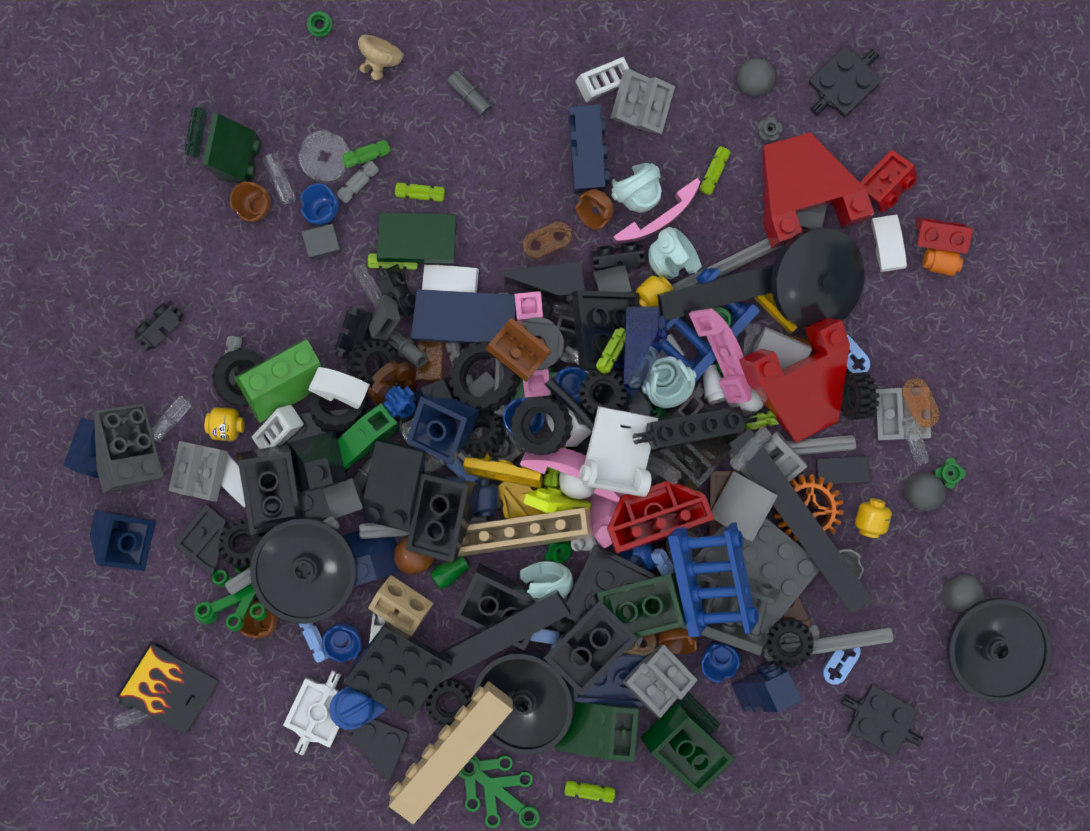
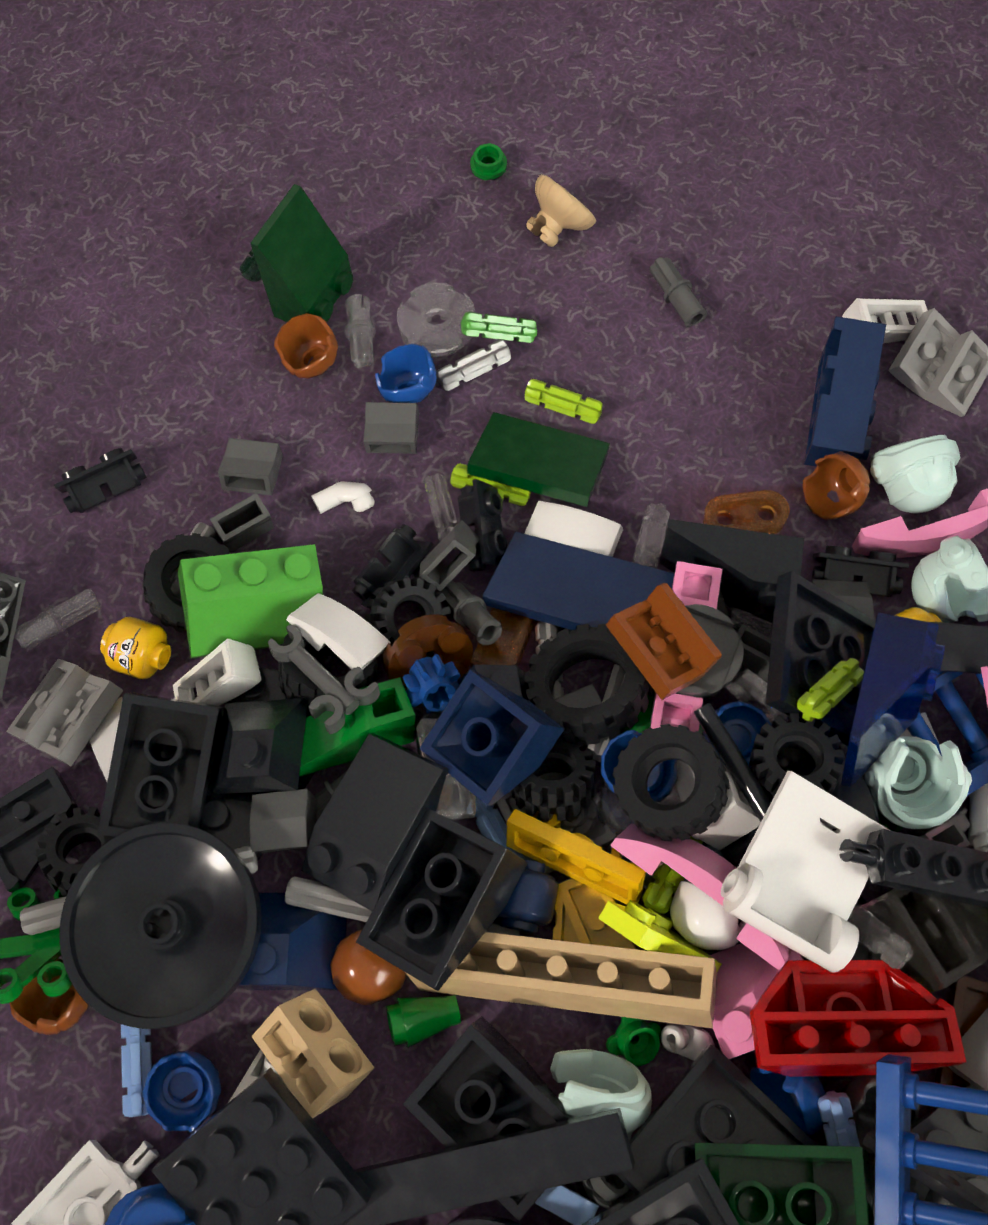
camera: 25 degrees right, 20 degrees down
(245, 291) = (250, 466): none -> dark grey piece
(250, 326) = (243, 514): none -> dark grey piece
(311, 290) = (343, 492): none -> white arm
(355, 427) = (337, 697): none -> dark grey bar
(496, 270) = (651, 535): none -> clear axle

